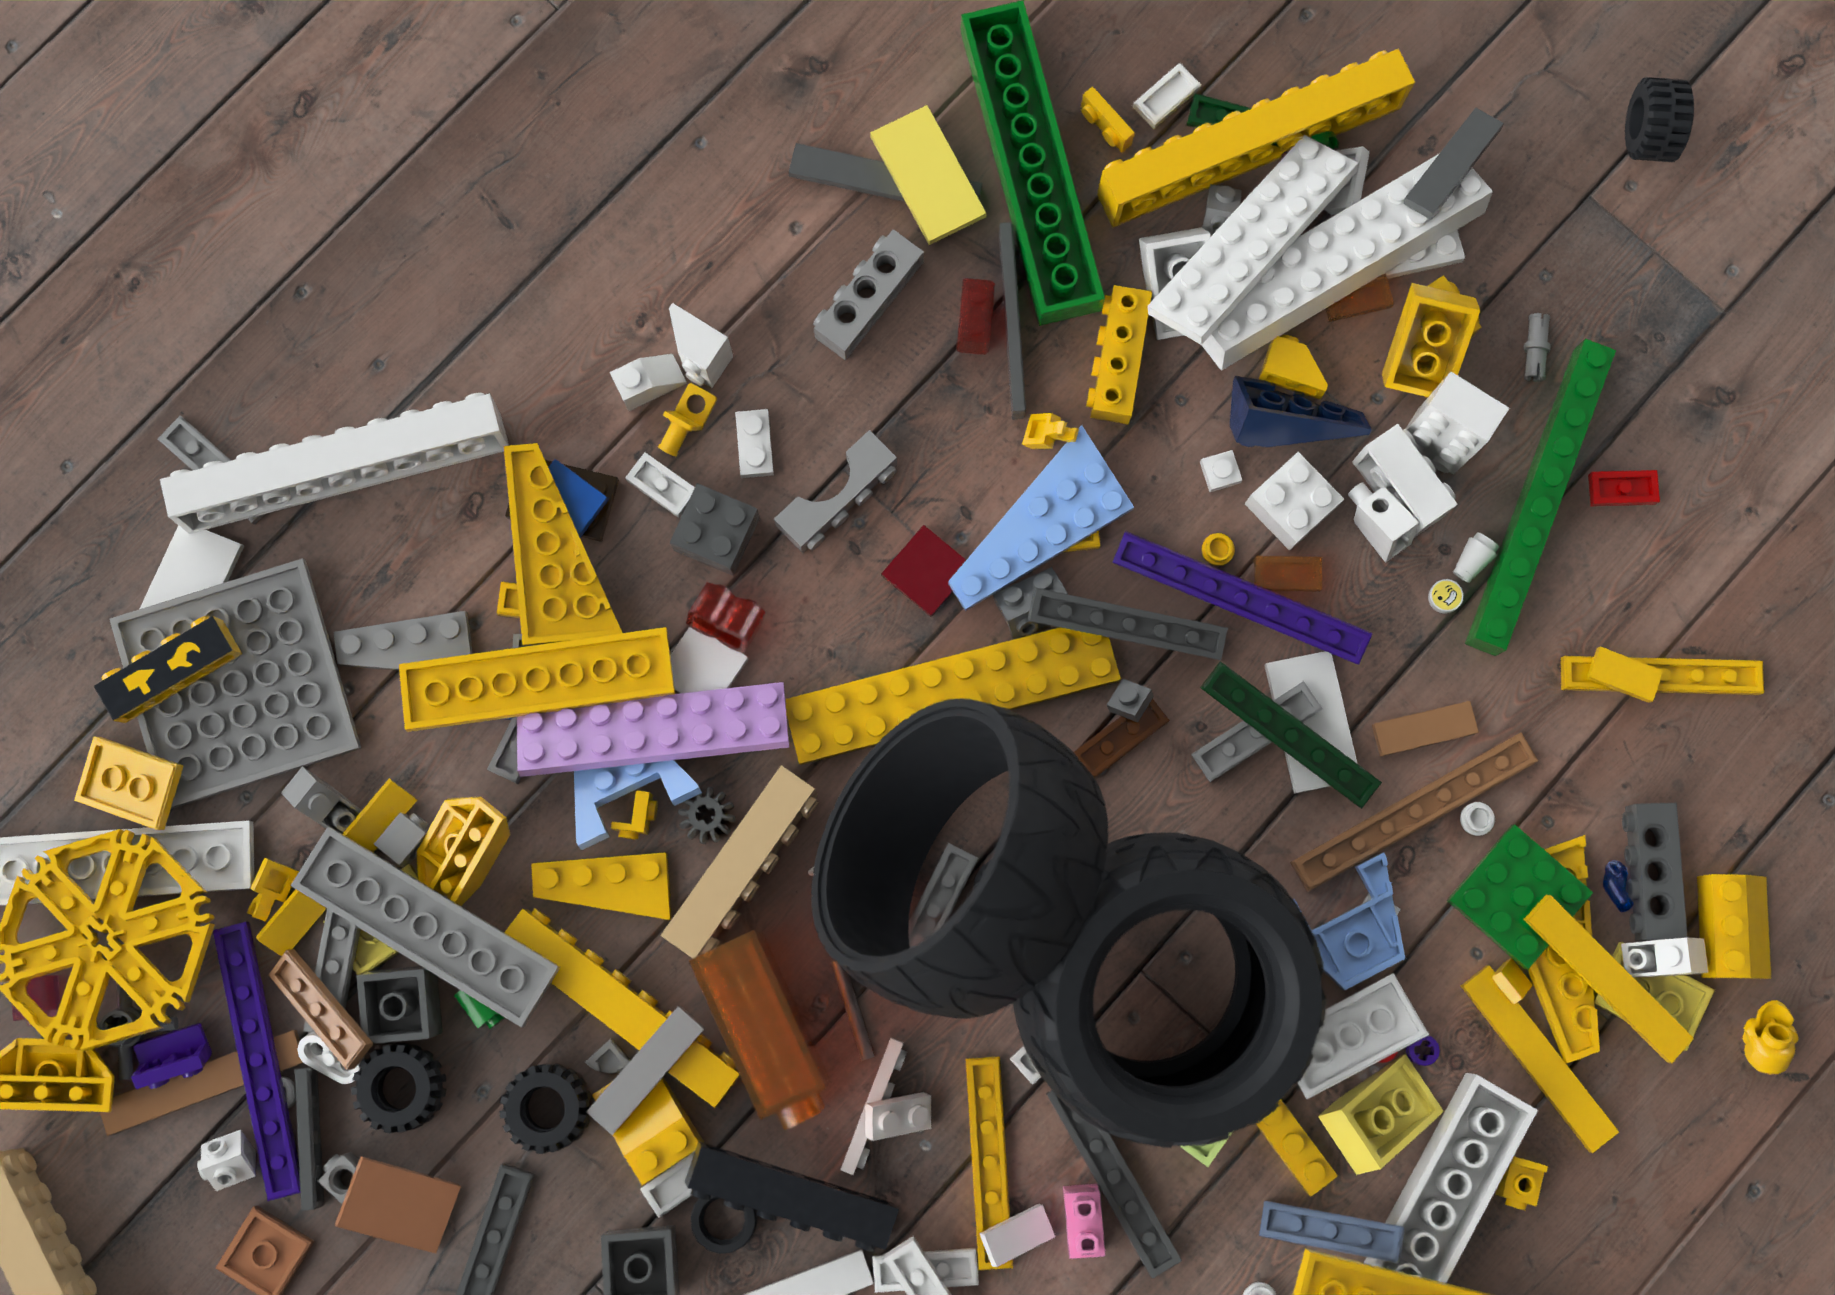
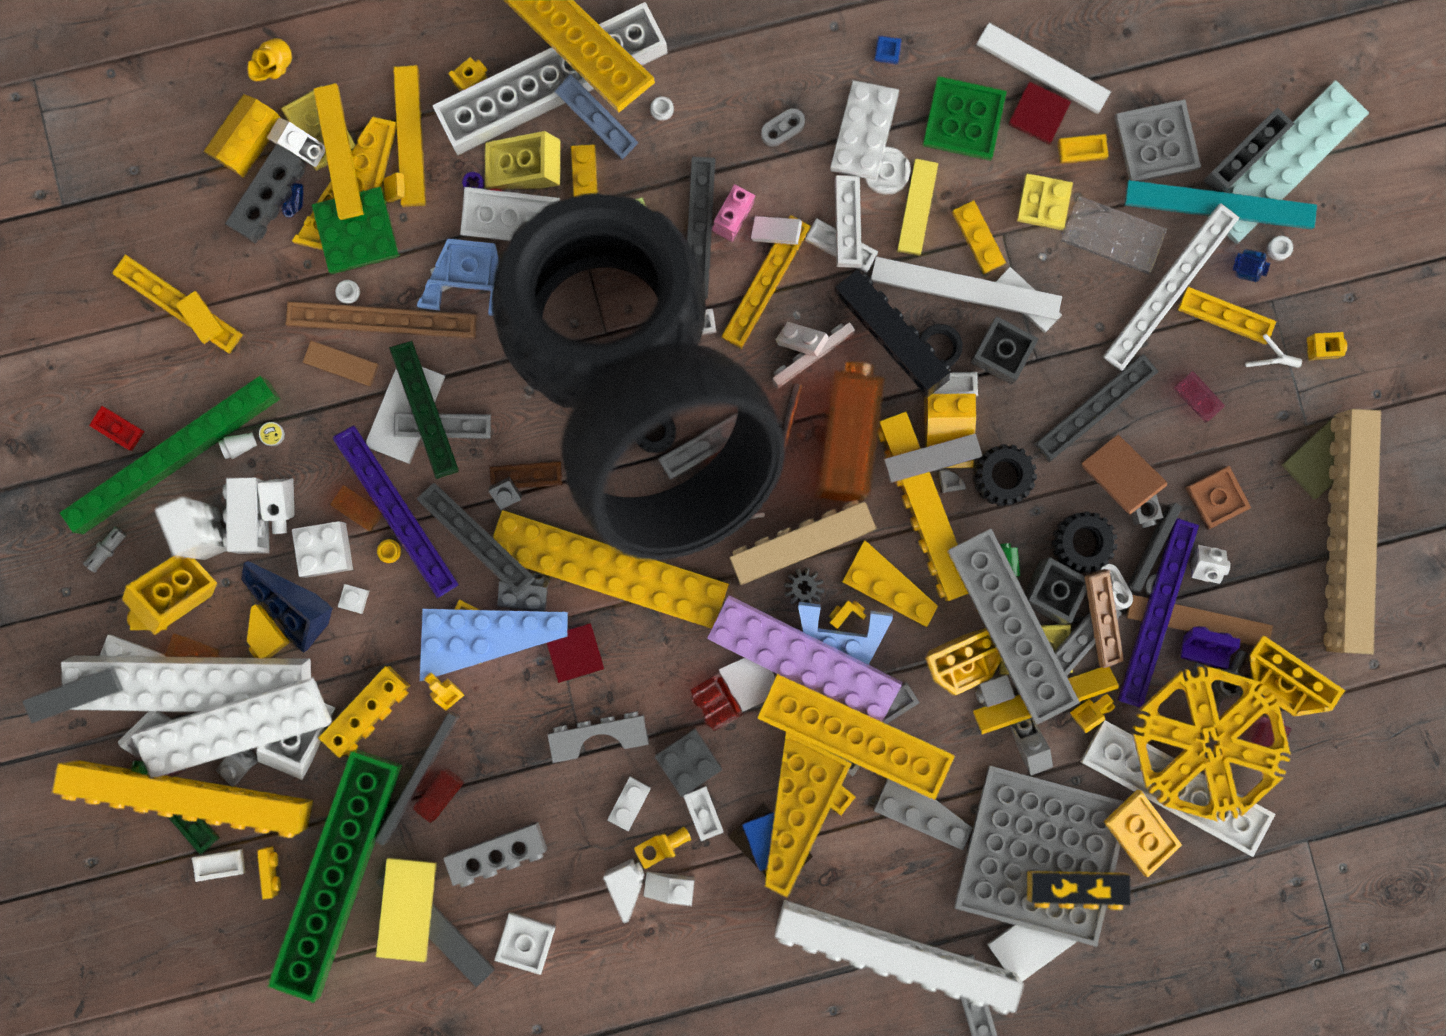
camera: 150 degrees left, 5 degrees up
(773, 222) = (525, 943): none -> white tile

